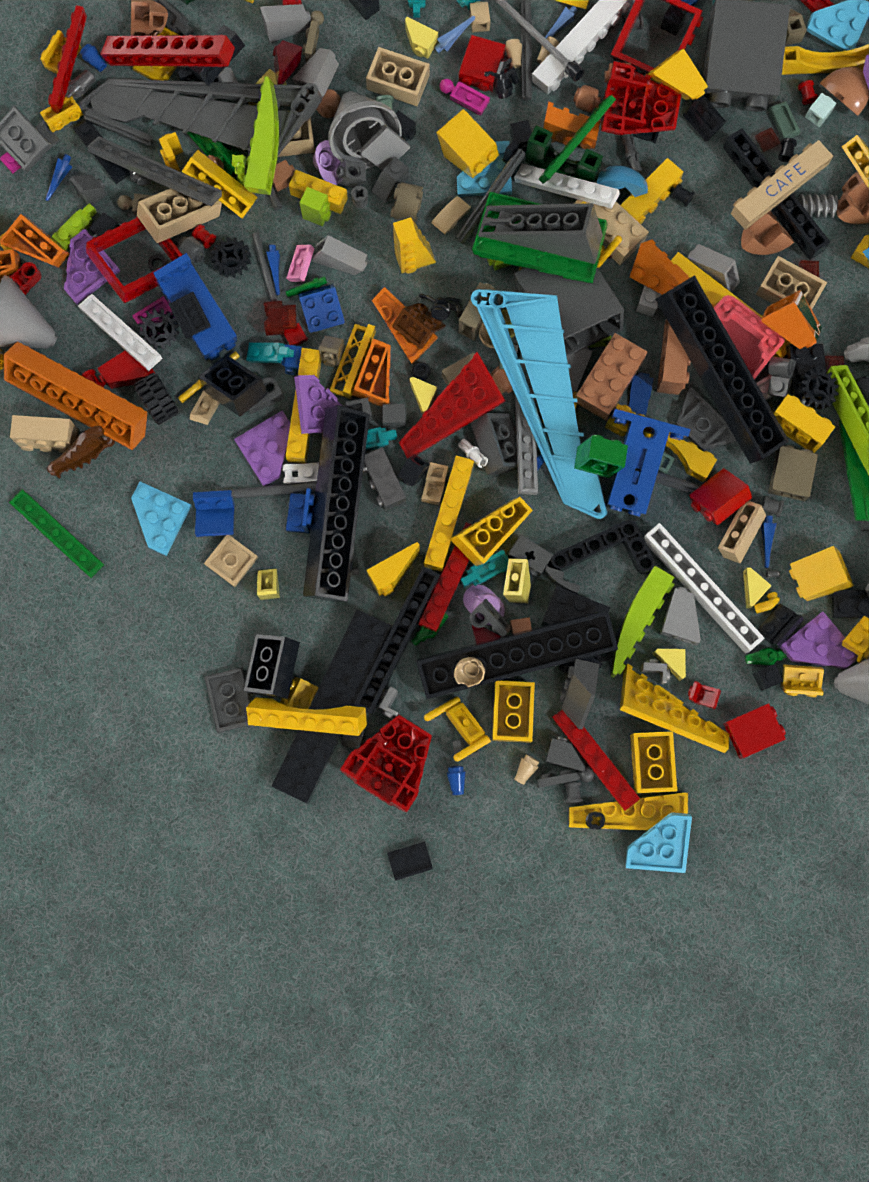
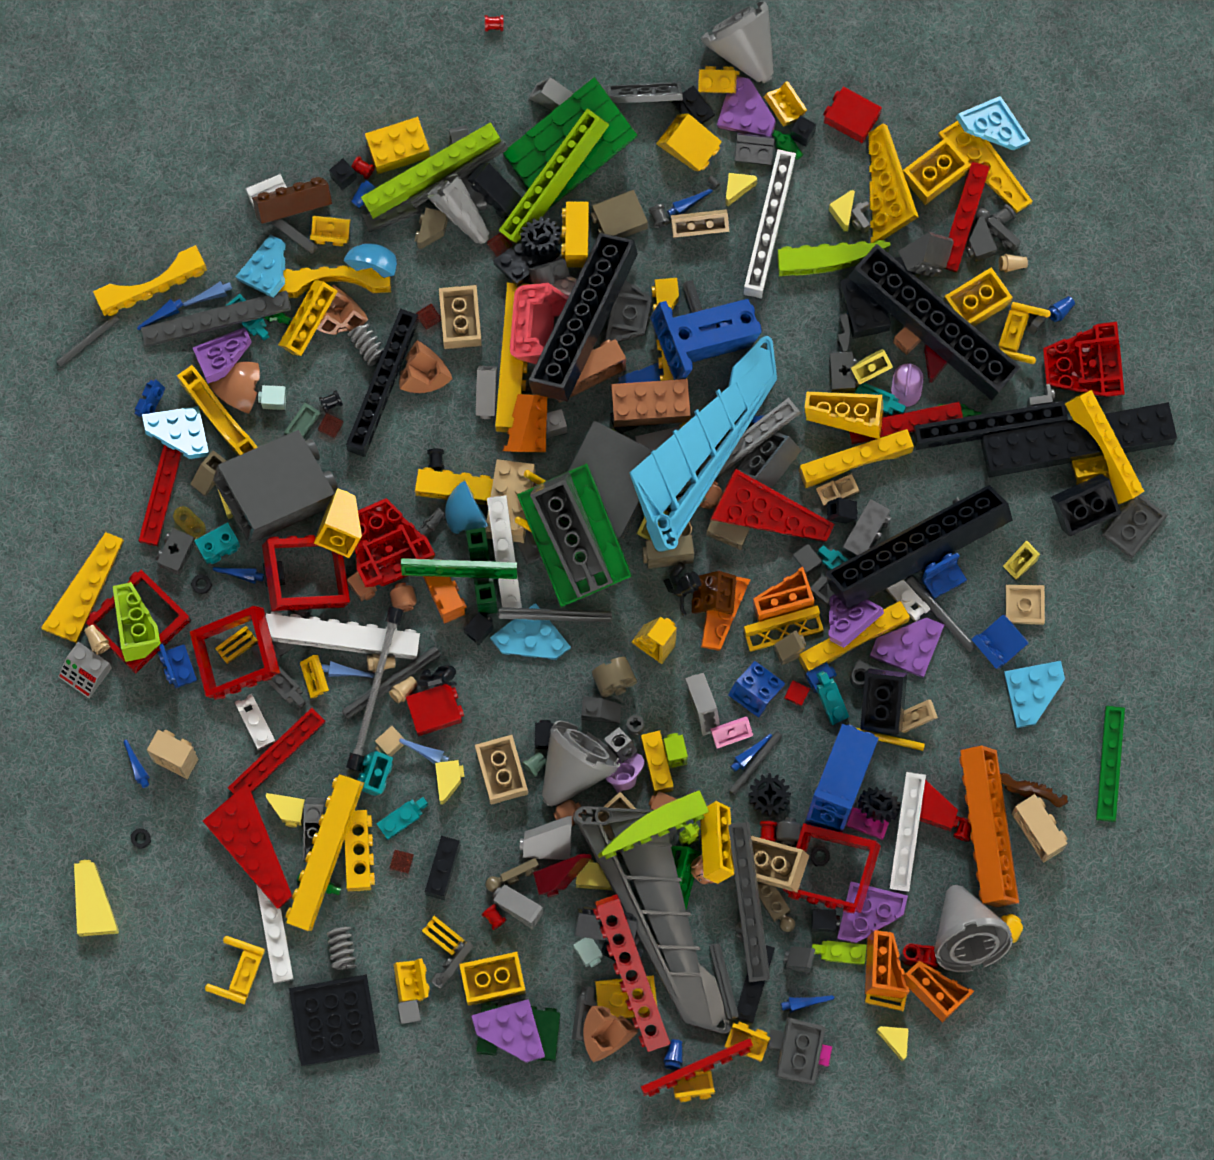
camera: 125 degrees left, 5 degrees down
(80, 84) = (708, 1045): piece -> none
(156, 398) = (941, 756): black tyre -> none
(170, 147) = (720, 911): yellow bracket -> none
(189, 315) = (858, 765): black plate -> none
(279, 317) = (793, 712): clear red piece -> none
(316, 283) = (749, 712): green piece -> none
(384, 147) = (580, 727): light grey tile -> none
(389, 572) = (938, 466): yellow slope -> none
(410, 861) = (1148, 302): black plate -> none
(421, 371) = (751, 567): black plate -> none
(424, 393) = (770, 548): light yellow slope -> none
(450, 214) = (594, 638): tan slope -> none
(465, 96) = (474, 703): dark pink plate -> none
(467, 144) = (526, 660): yellow slope -> none
(469, 671) = (978, 342): tan hair -> none
(473, 453) = (791, 474): white axle -> none
(492, 616) = (919, 368): dark grey plate -> none
(511, 148) = (503, 622): black tile -> none
(589, 819) = (1016, 188): black bush -> none
(601, 456) = (729, 360): green brick -> none
(604, 545) = (791, 321): black beam -> none
(681, 617) = (804, 226): light grey slope -> none
(704, 118) = (354, 481): black plate -> none
(704, 695) = (853, 169): red bracket -> none
(720, 496) = (685, 257): red brick -> none
(773, 600) = (740, 167): yellow arm -> none
(781, 184) = (380, 375): tan brick -> none
(793, 320) = (496, 292): orange slope -> none
(807, 92) = (263, 418): red bush -> none

